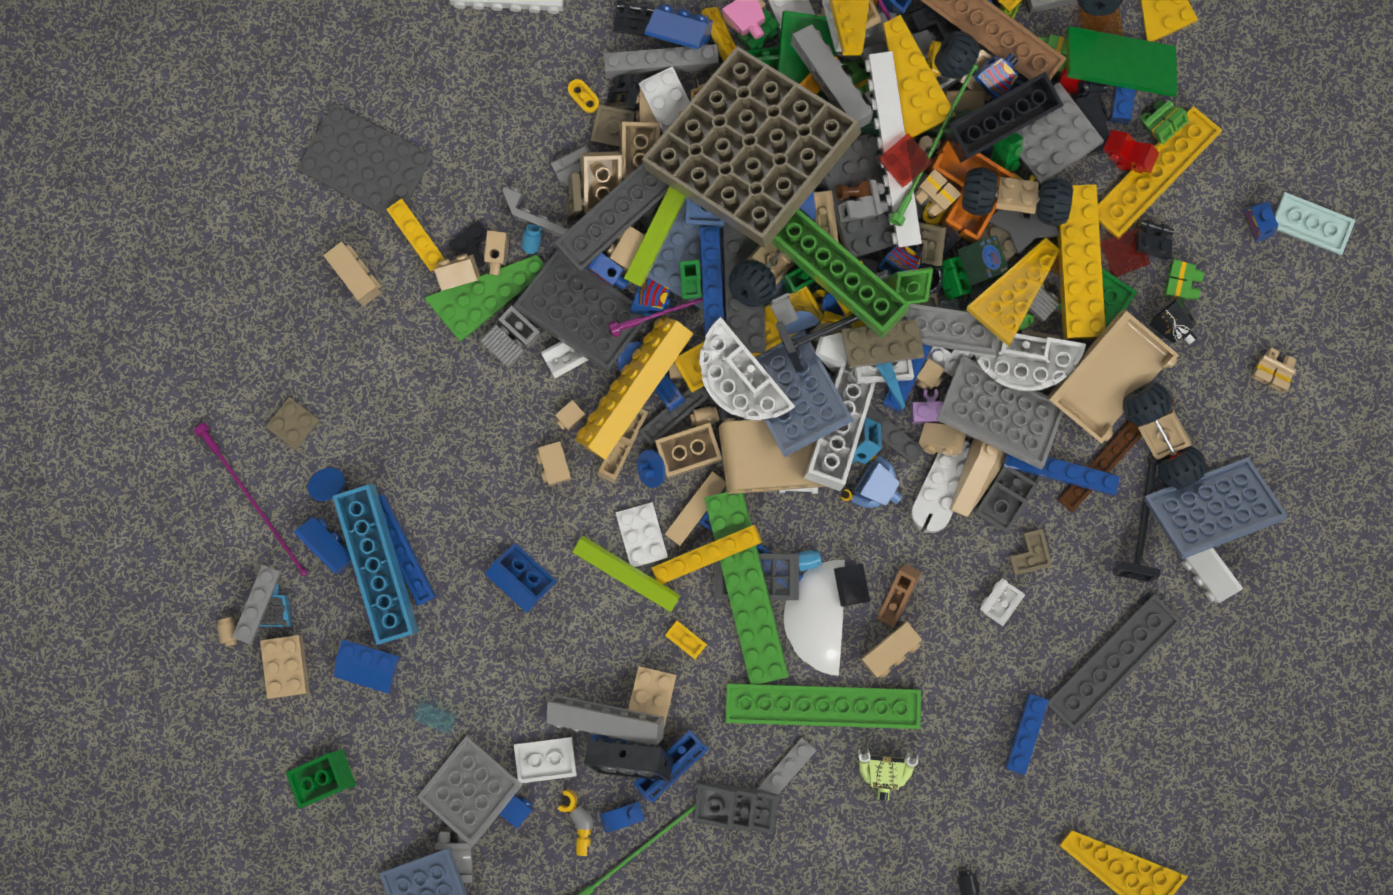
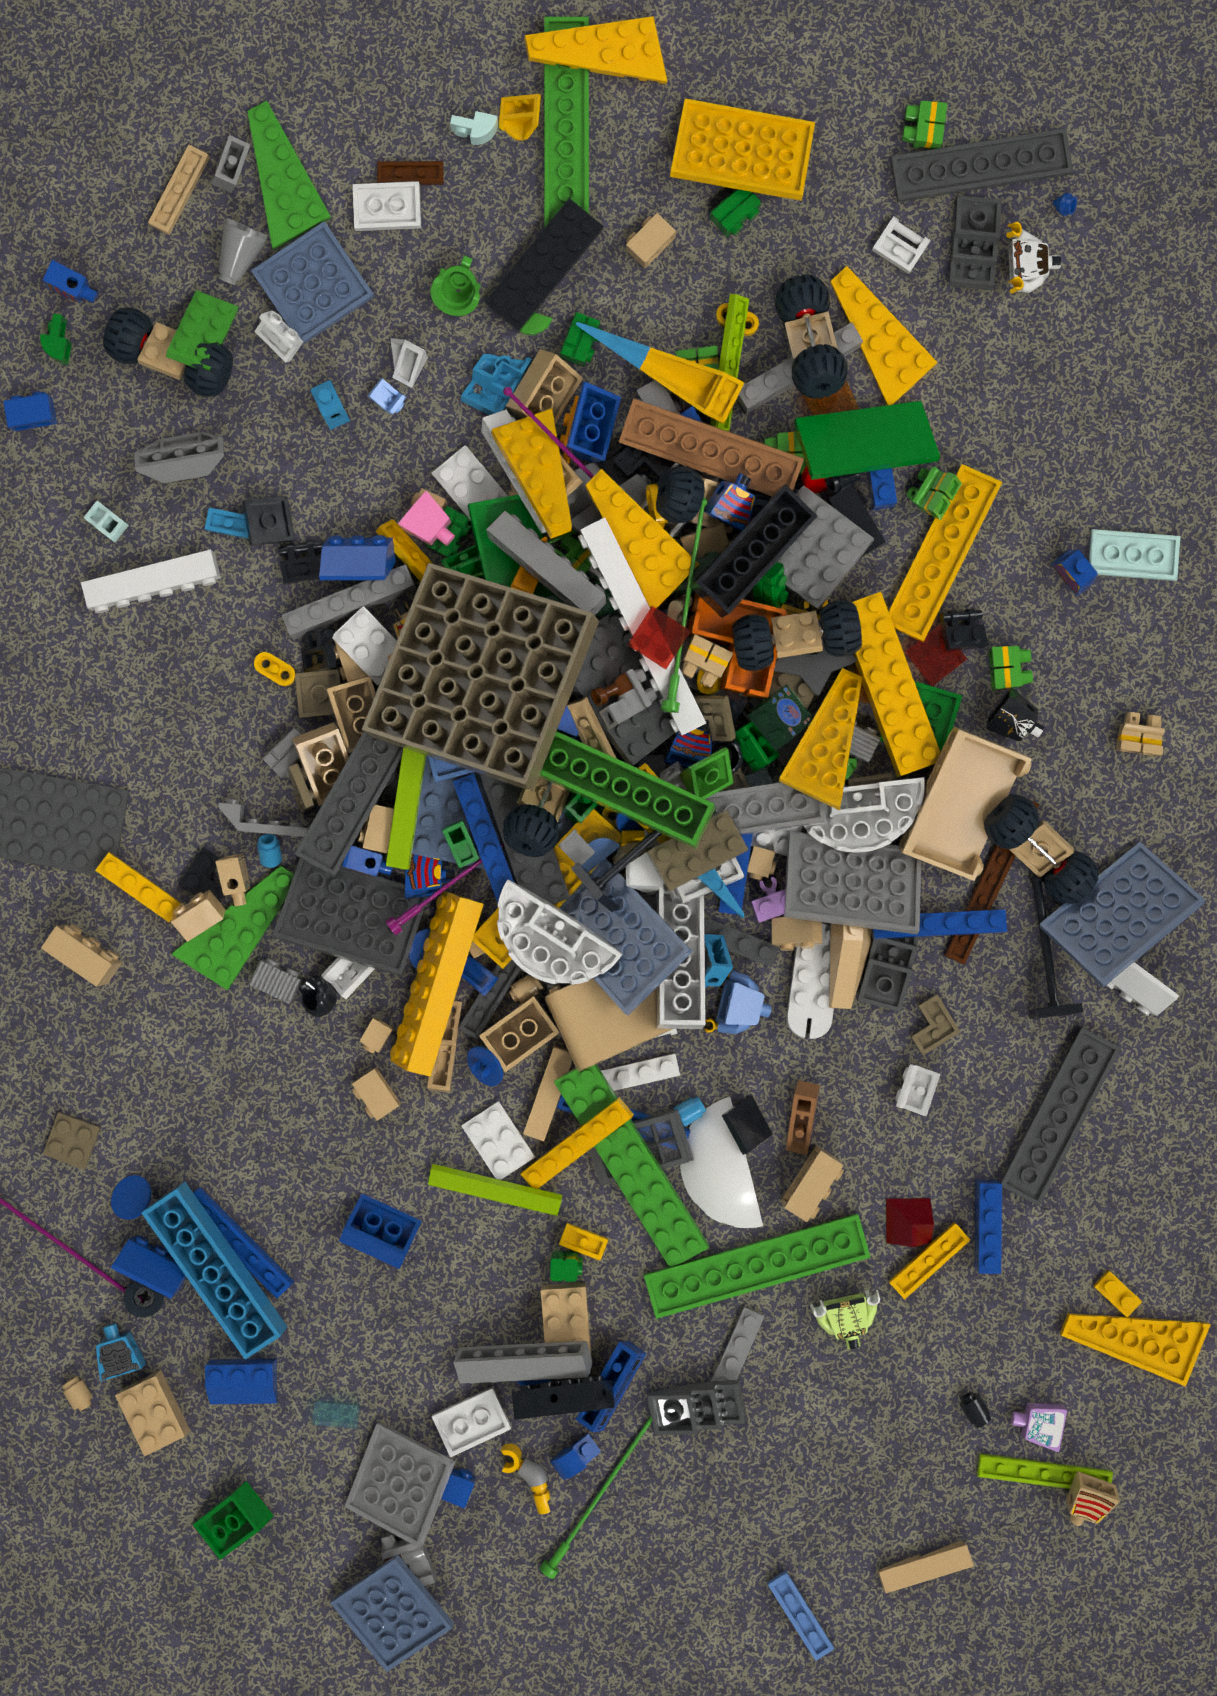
camera: 20 degrees left, 5 degrees up
(256, 604) = (98, 1357): light grey plate -> none
(298, 570) = (133, 1304): none -> black bush
(519, 327) = (288, 955): light grey brick -> none
(532, 369) = (318, 996): none -> black hair
(667, 653) = (565, 1266): none -> green brick
(779, 516) = (642, 1072): none -> white plate
(961, 710) = (909, 1221): none -> dark red slope
(968, 748) = (929, 1260): none -> yellow plate
(1117, 826) = (1117, 1293): none -> yellow plate
(1130, 154) = (908, 542): red brick -> none

